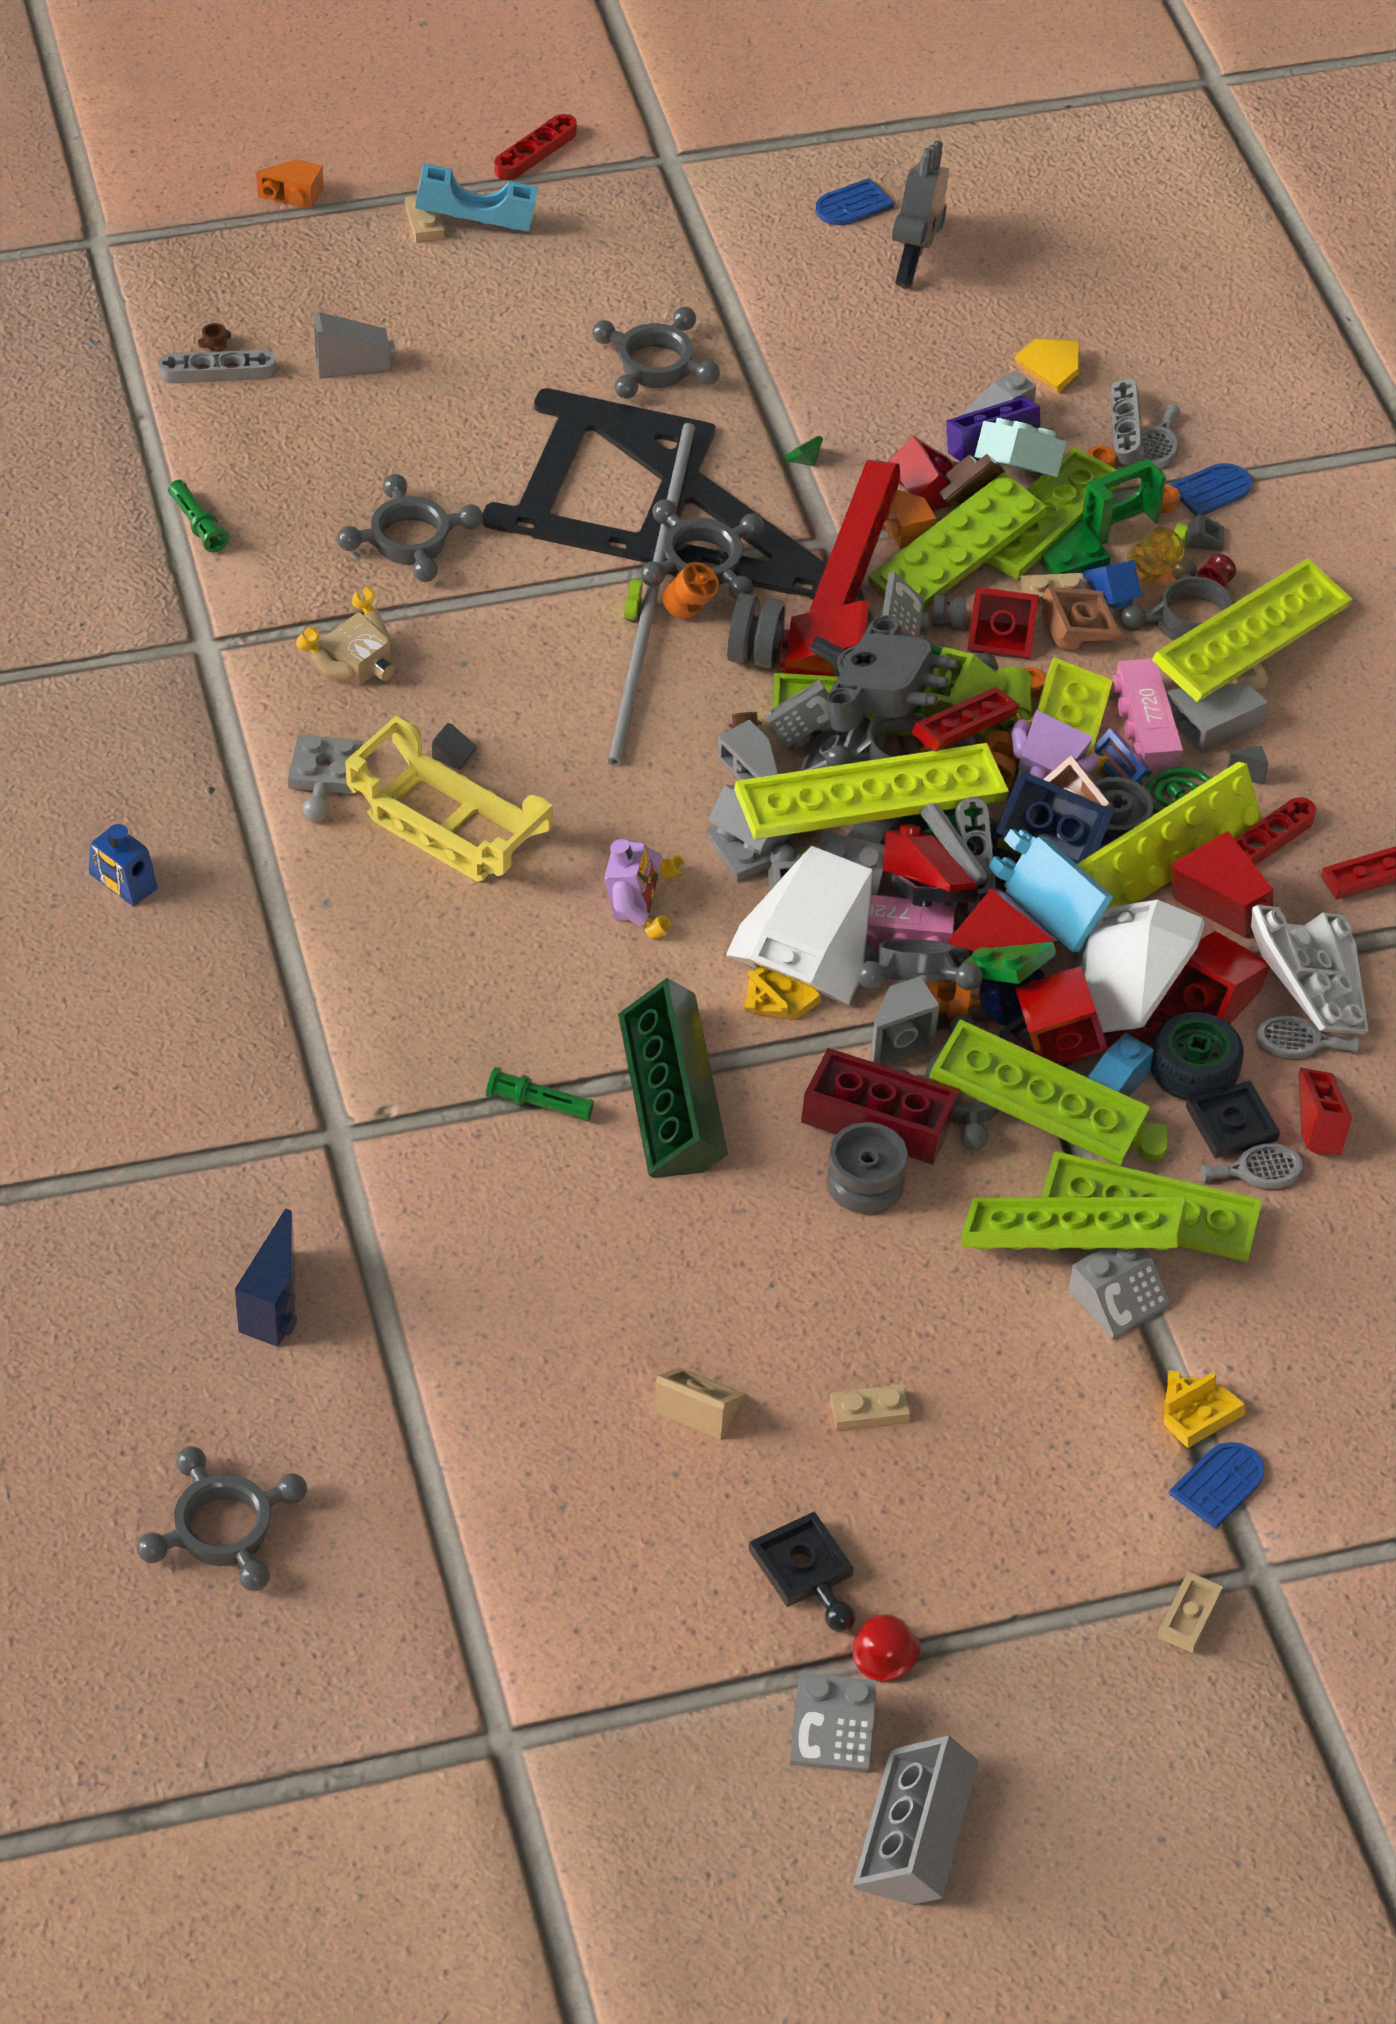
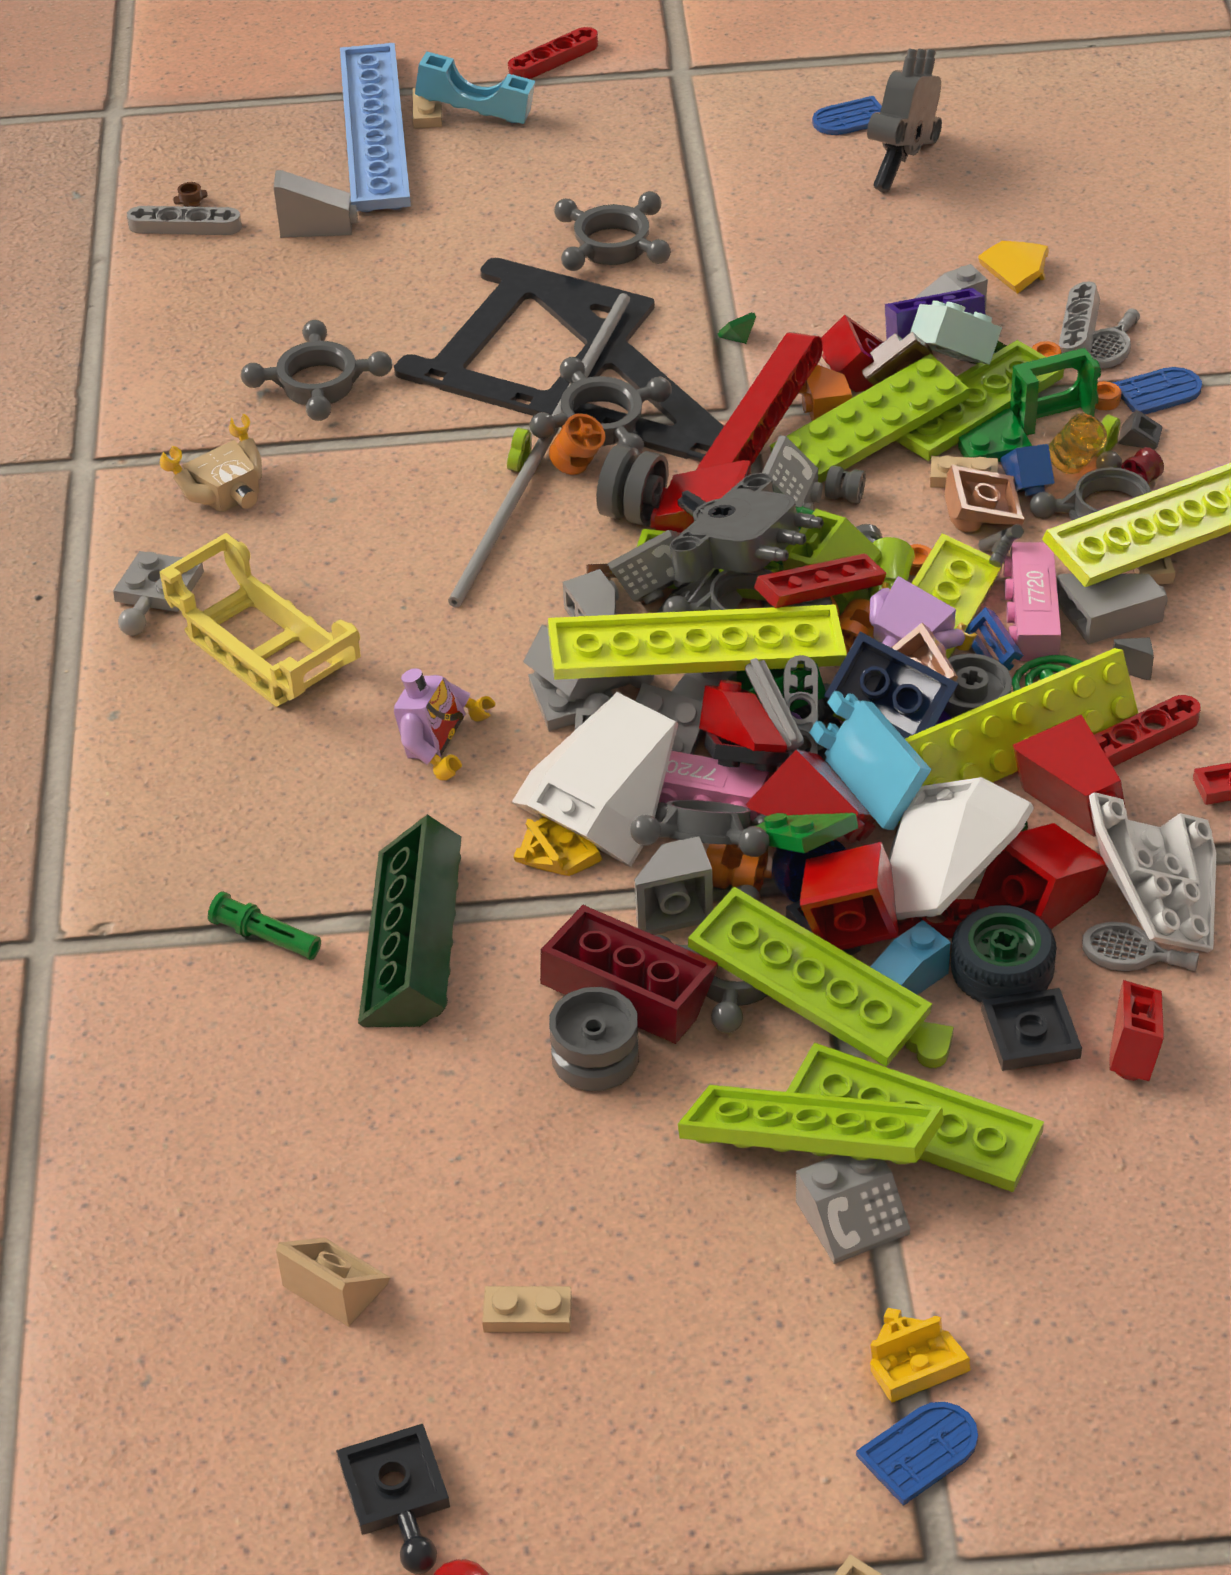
camera: 15 degrees right, 5 degrees down
(203, 523) = (117, 353): green pin -> none
(291, 183) = (309, 71): orange slope -> none
(379, 244) = (374, 128): none -> light blue plate
(452, 747) = (291, 574): dark grey slope -> none
(1003, 622) = (900, 497): red slope -> none
(1109, 663) = (1000, 544): none -> dark grey hose
(1242, 1171) = (1029, 1086): light grey piece -> none

